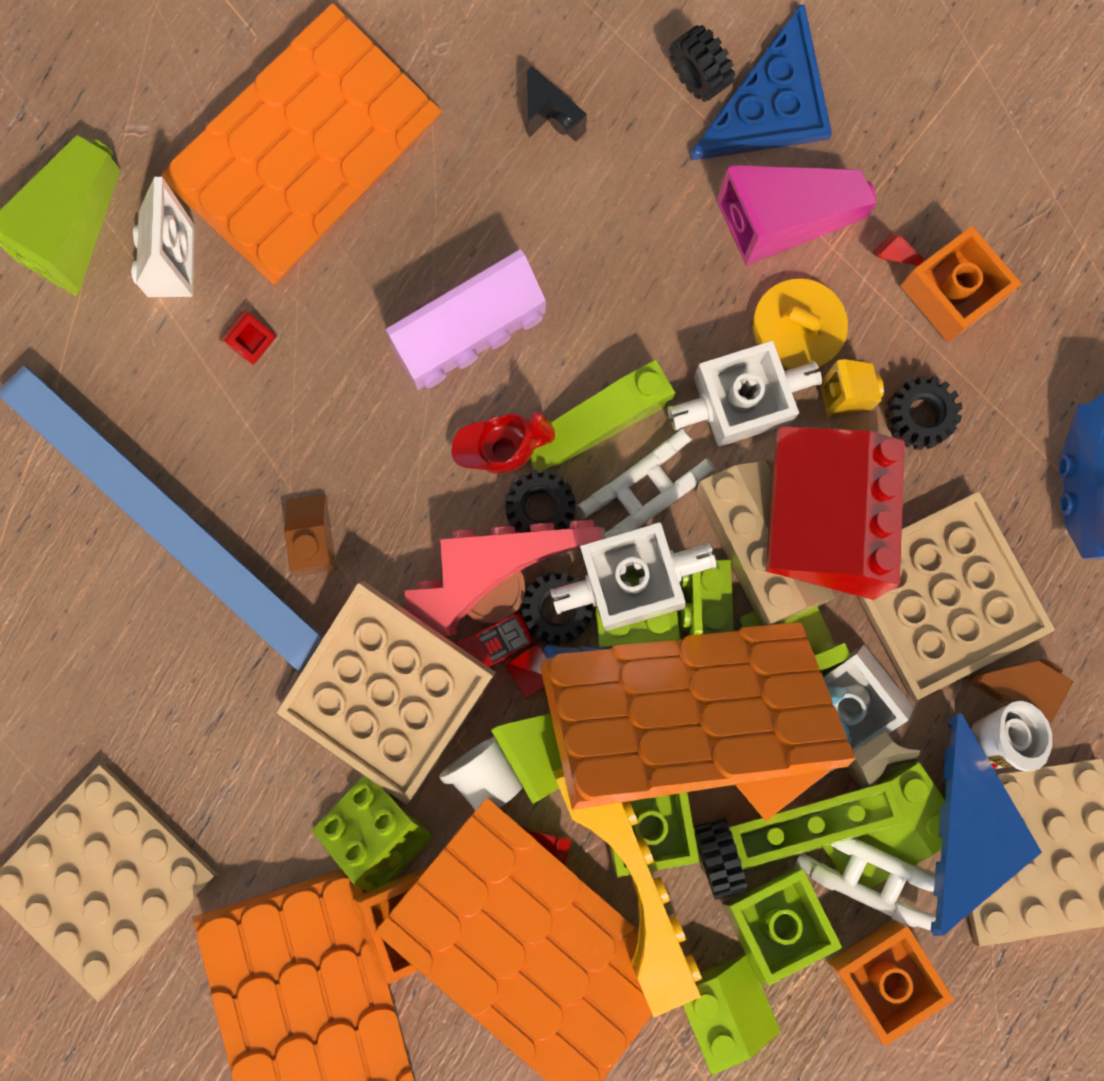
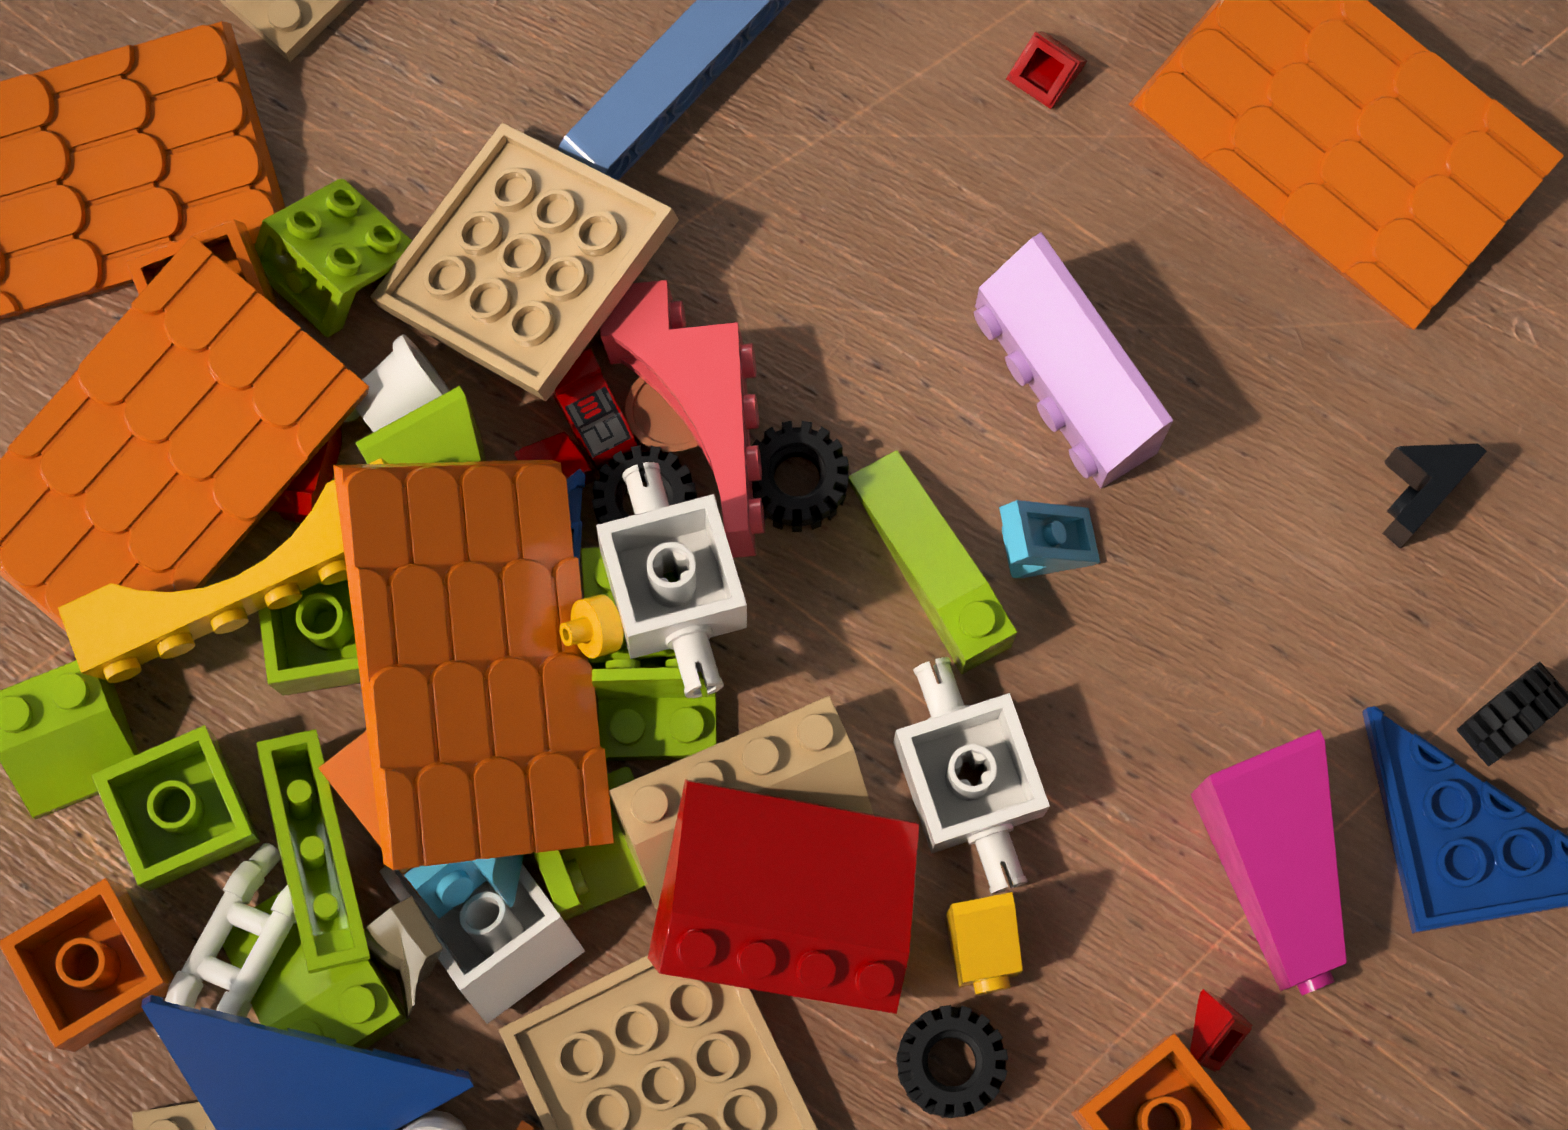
camera: 95 degrees right, 5 degrees down
(309, 536) = (752, 157): dark orange slope -> none
(501, 442) = (887, 412): red hair -> none
(585, 345) = (1047, 538): none -> medium azure slope
(647, 466) = (830, 595): white piece -> none
(665, 632) = (593, 627): none -> yellow tile
(720, 858) = (272, 714): black tyre -> none
(802, 321) = (1092, 872): yellow shield -> none

